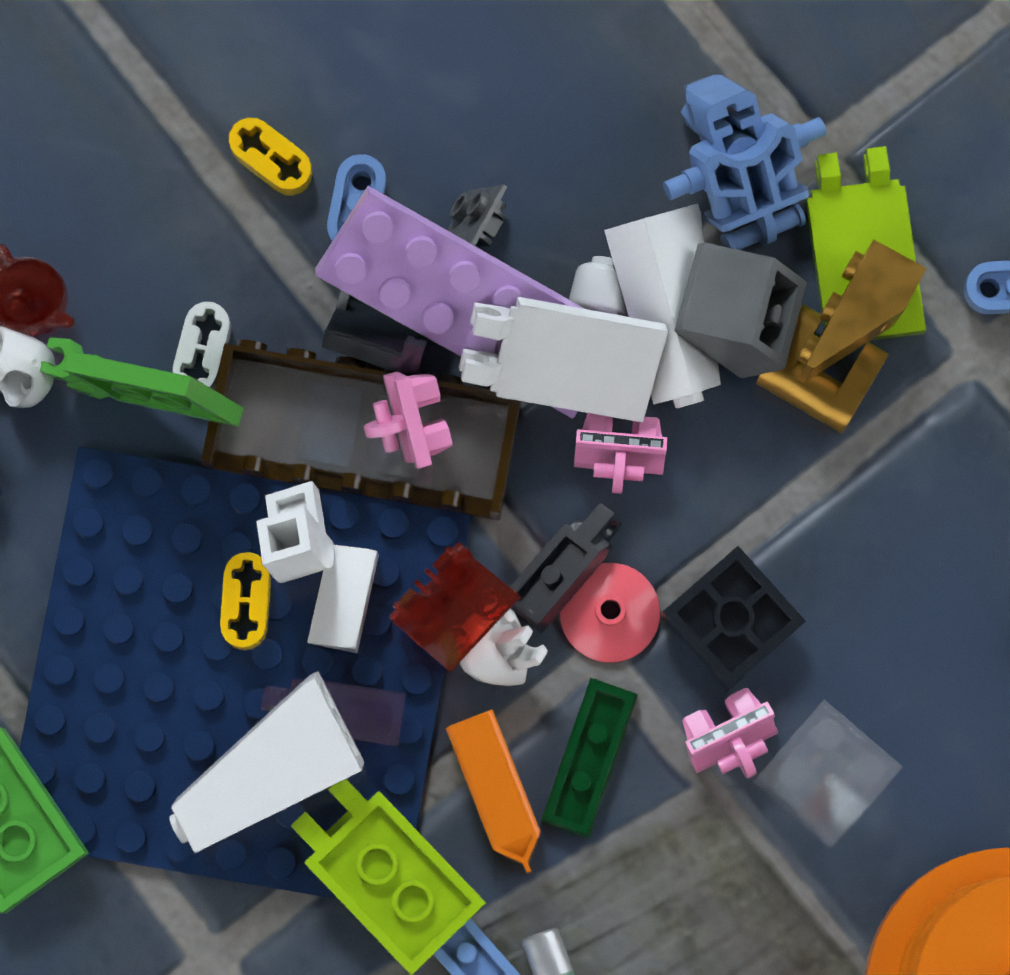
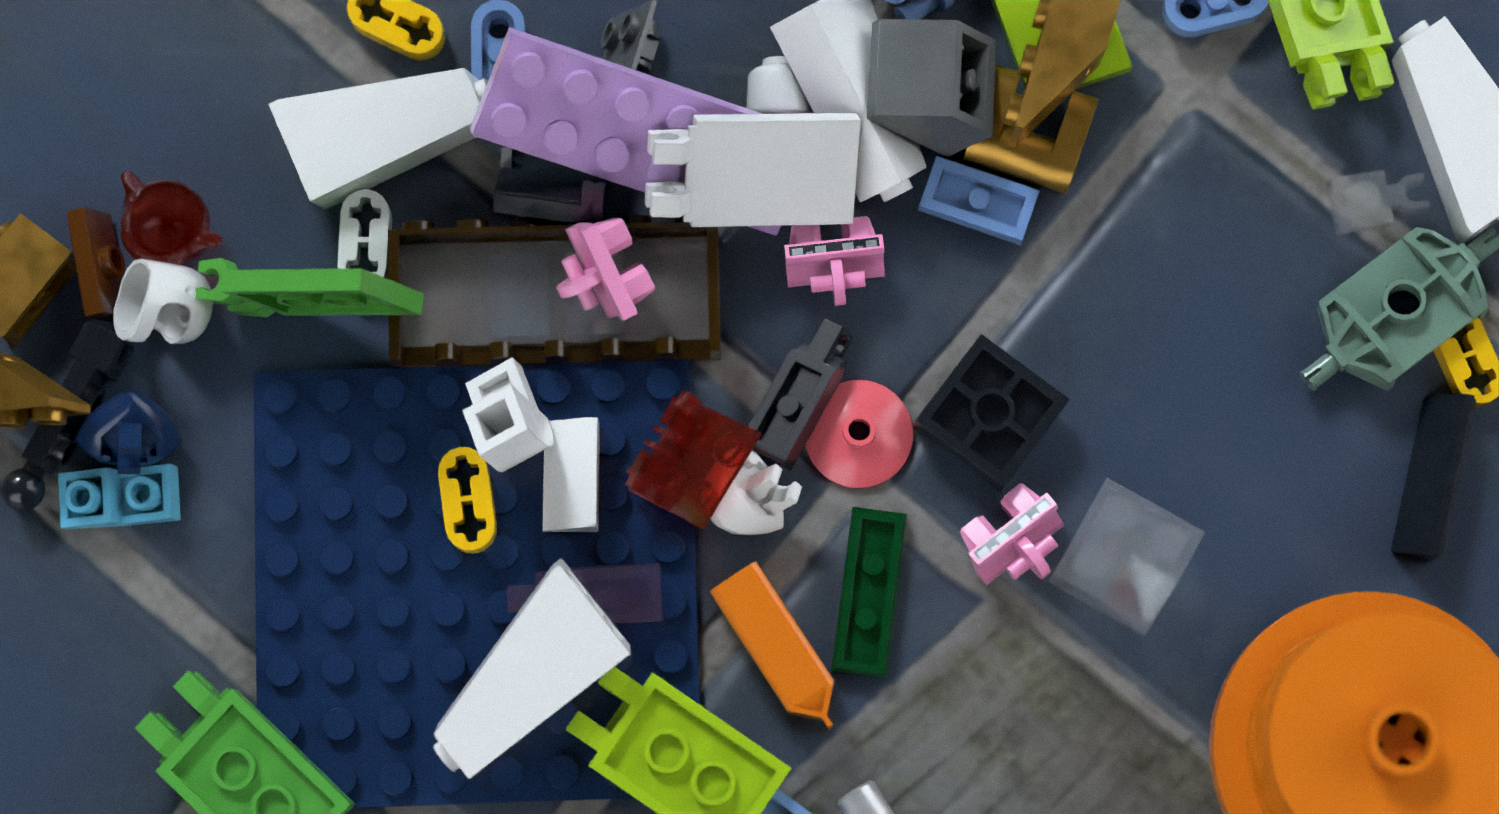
camera: 10 degrees left, 0 degrees up
(231, 251) = (375, 130): none -> white slope
(761, 423) = (978, 200): none -> medium blue plate

